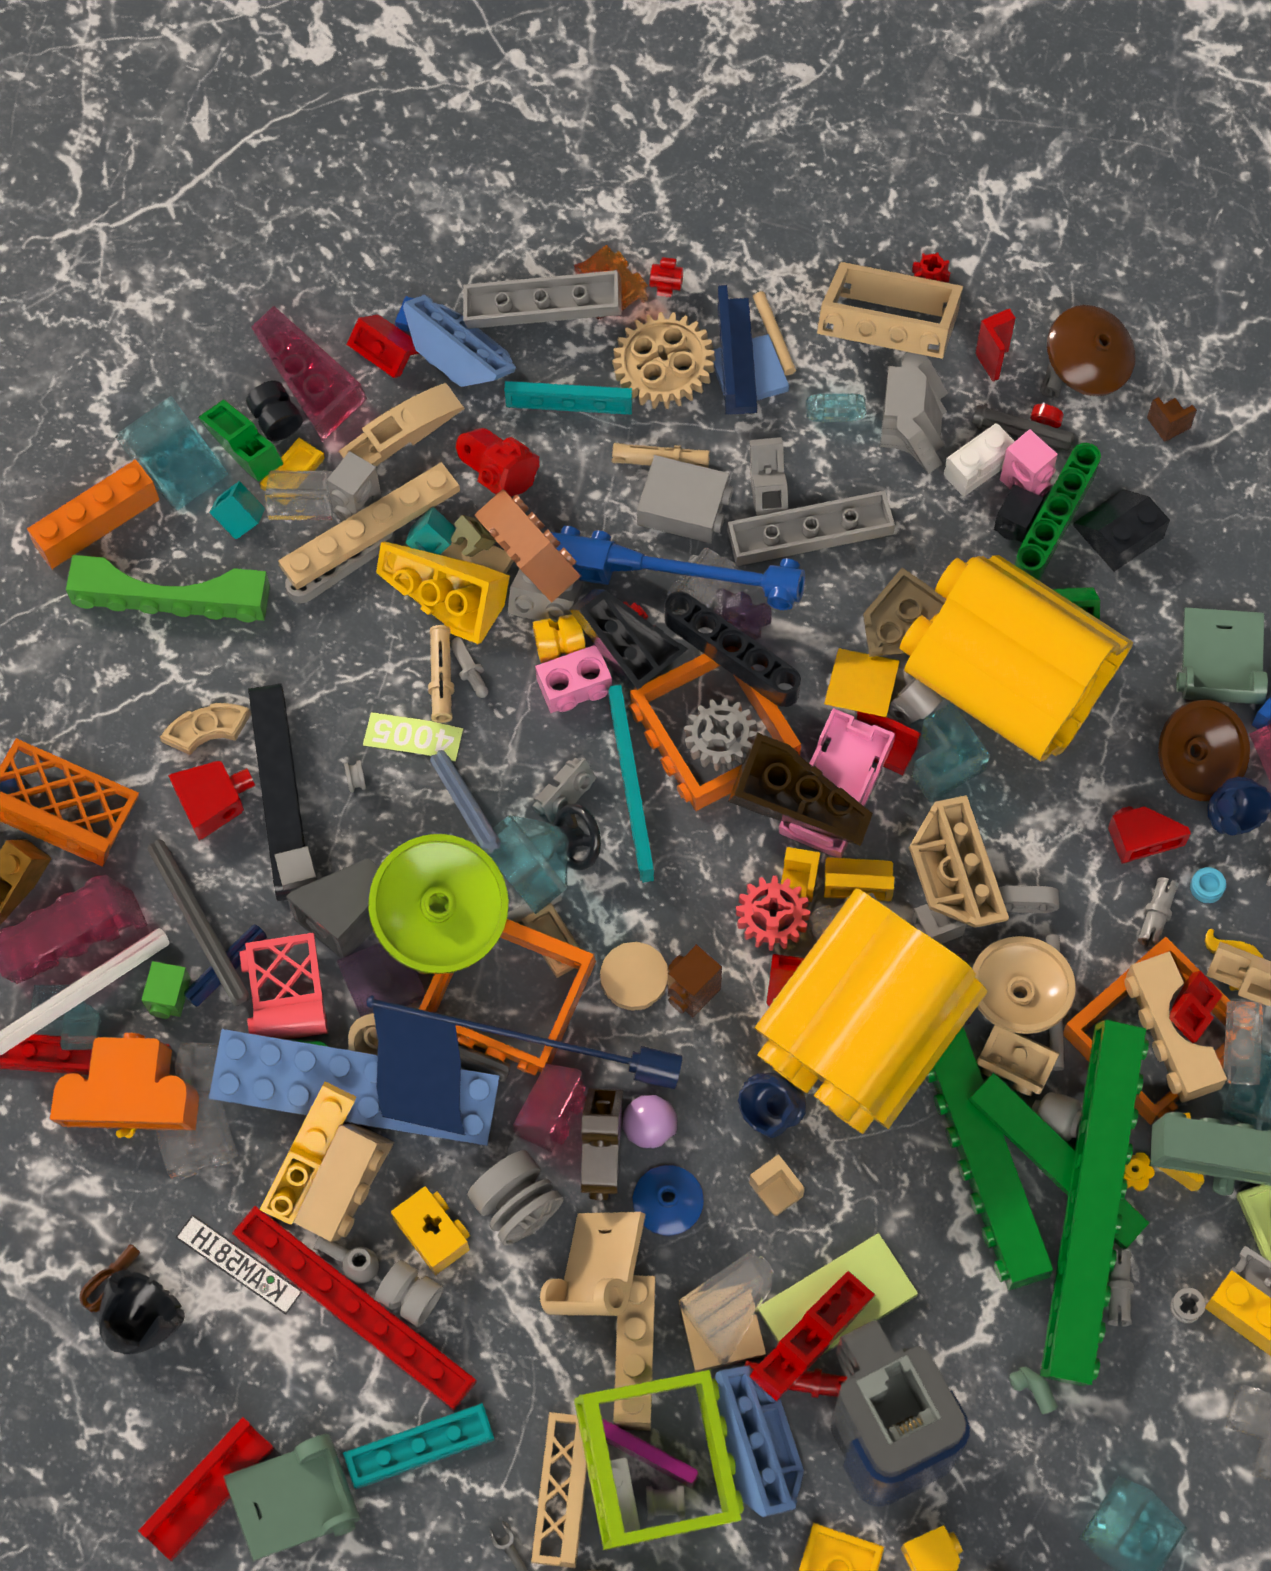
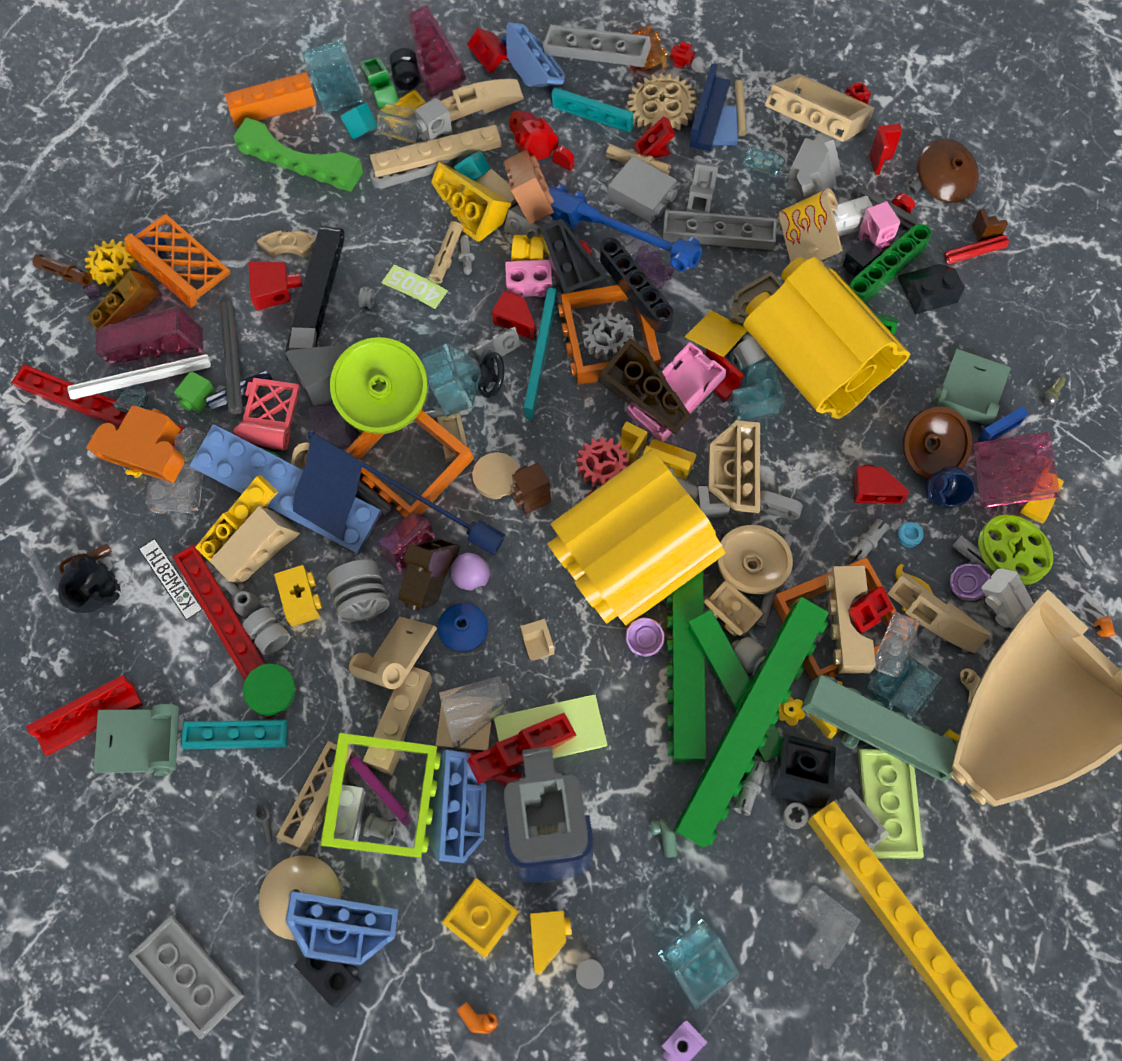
camera: 20 degrees right, 0 degrees up
(445, 1370) = (269, 689): none -> green tile
(465, 802) = (425, 330): sand blue axle -> none
(476, 534) = (498, 173): olive tile -> none
(554, 482) = (563, 157): none -> red tile
(574, 736) = (513, 312): none -> red slope
(675, 419) = (655, 140): none -> red slope
(771, 1104) = (552, 584): dark blue hair -> none
(916, 1135) = (644, 637): none -> lavender hair
(934, 492) = (811, 227): none -> tan door
(1164, 454) = (976, 249): none -> red axle
(1180, 1244) = (804, 771): none -> black slope

